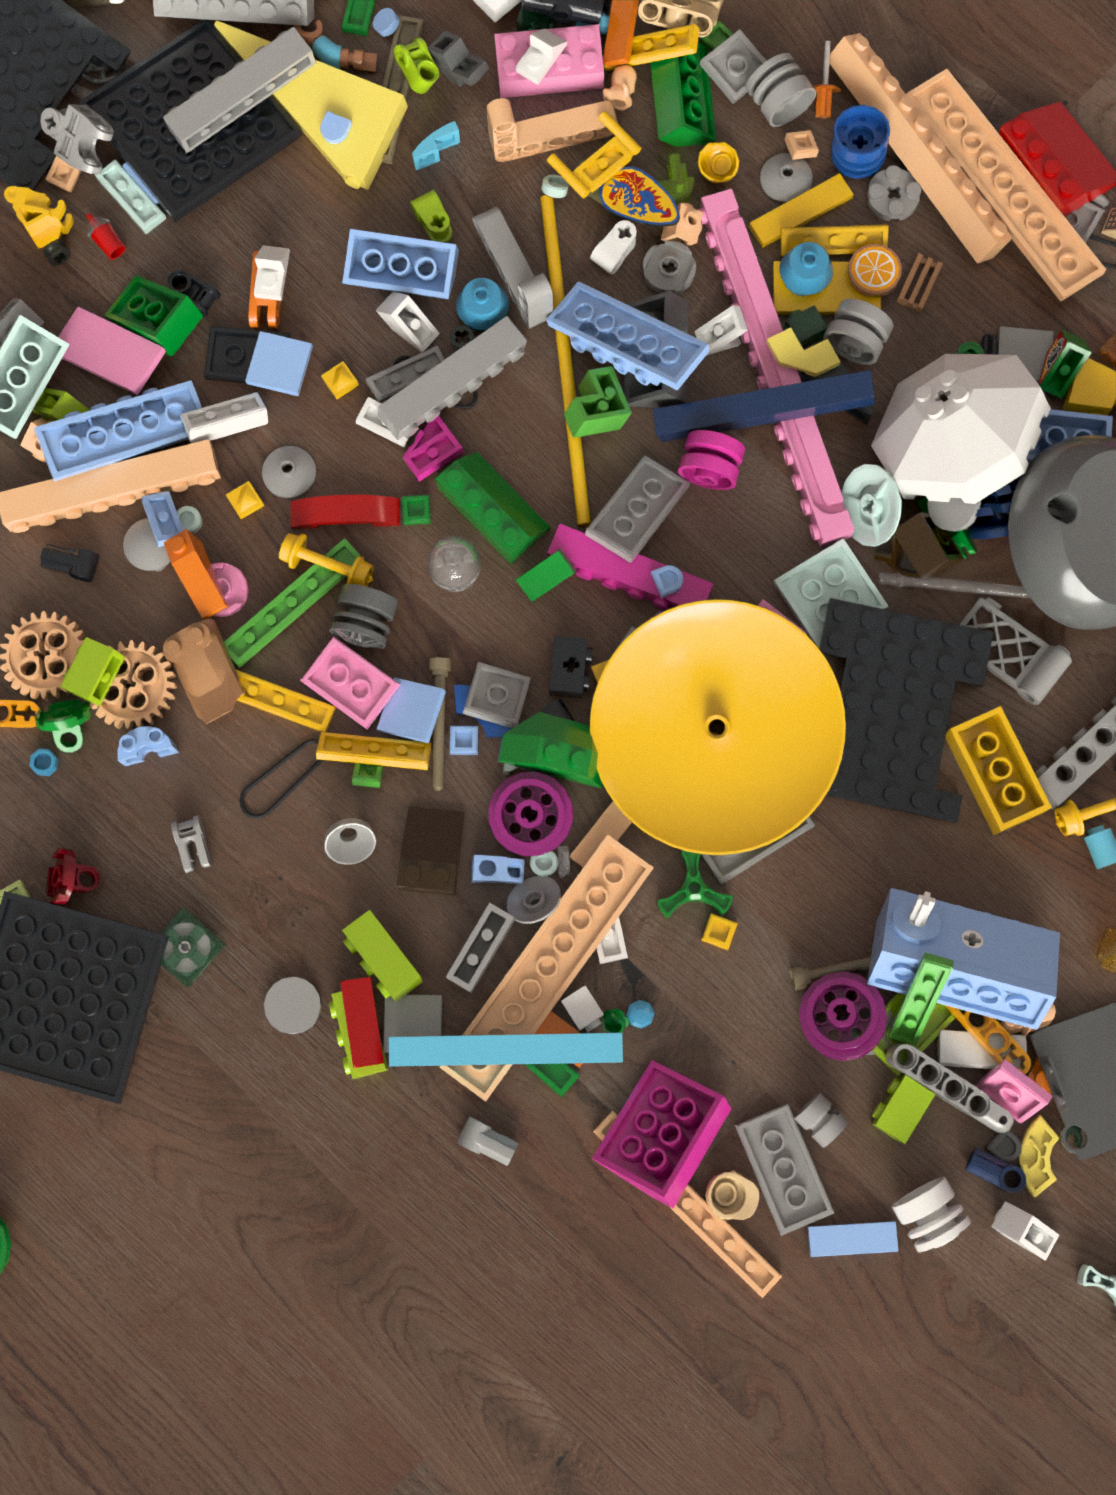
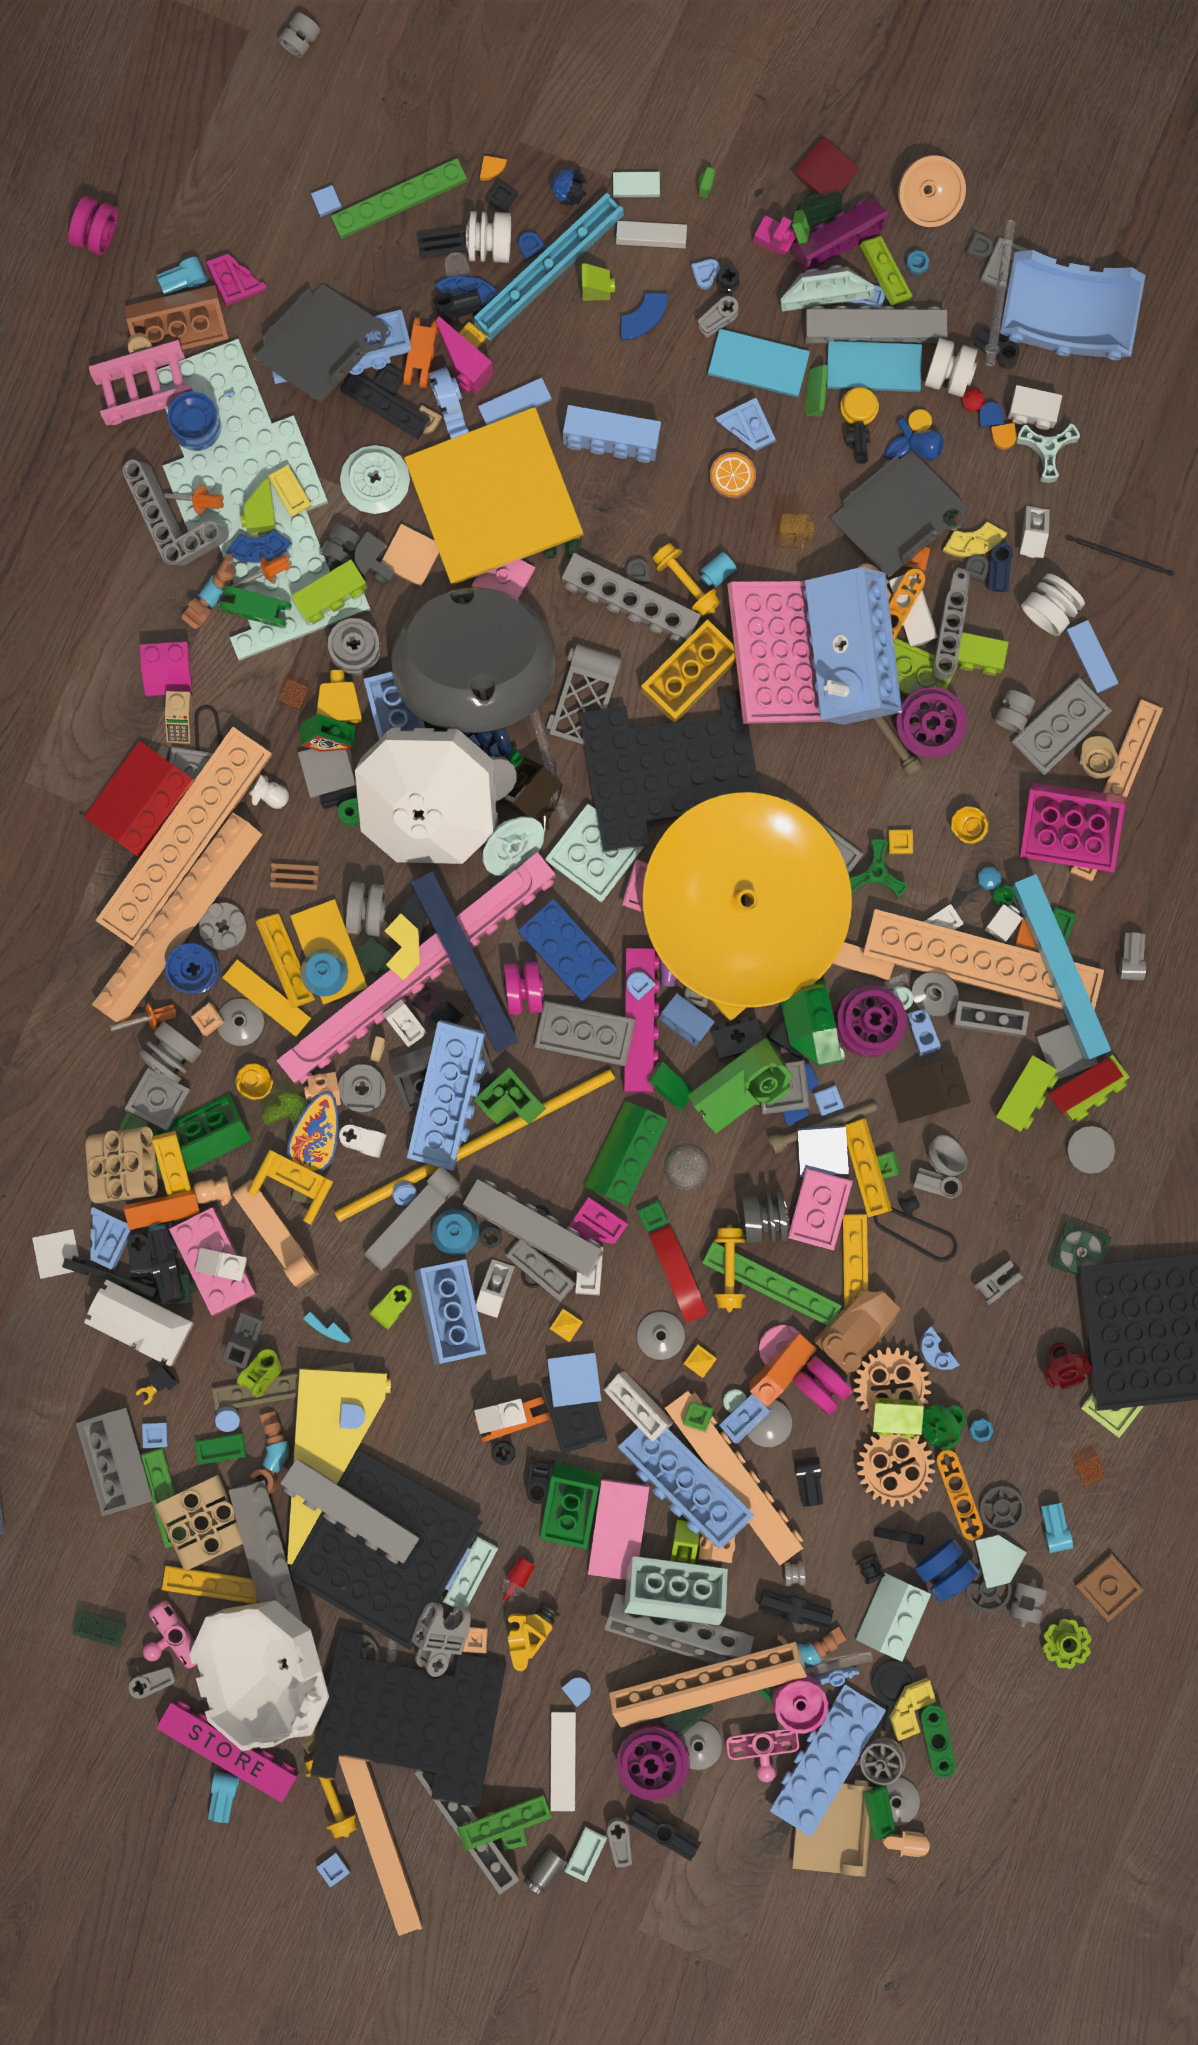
camera: 115 degrees left, 5 degrees up
(159, 607) = (824, 1383): none -> dark pink wheel
(182, 465) = (698, 1417): none -> bright green tile
(236, 269) = (507, 1446): none -> black bush
(315, 781) = (909, 1205): none -> black piece
(329, 812) = (934, 1183): none -> light grey piece
(515, 643) = (745, 1082): none -> bright green brick
(544, 265) = (404, 1193): none -> light blue tile
(554, 186) = (327, 1213): light aqua tile -> none
(611, 621) = (686, 1020): none -> medium blue hinge
(704, 297) = (378, 1049): none -> tan tile
(709, 1014) = (970, 824): none -> yellow hair
(722, 372) = (436, 1007): none -> black slope
(734, 524) = (567, 951): none -> blue brick
(874, 270) = (302, 916): tile -> none
(920, 998) = (900, 667): bright green tile -> none
(960, 1324) = (1119, 555): none -> black piece
(989, 865) = (773, 652): none -> bright pink plate
(1014, 1091) = (937, 575): bright pink plate -> none
(1019, 287) = (271, 793): none -> white animal

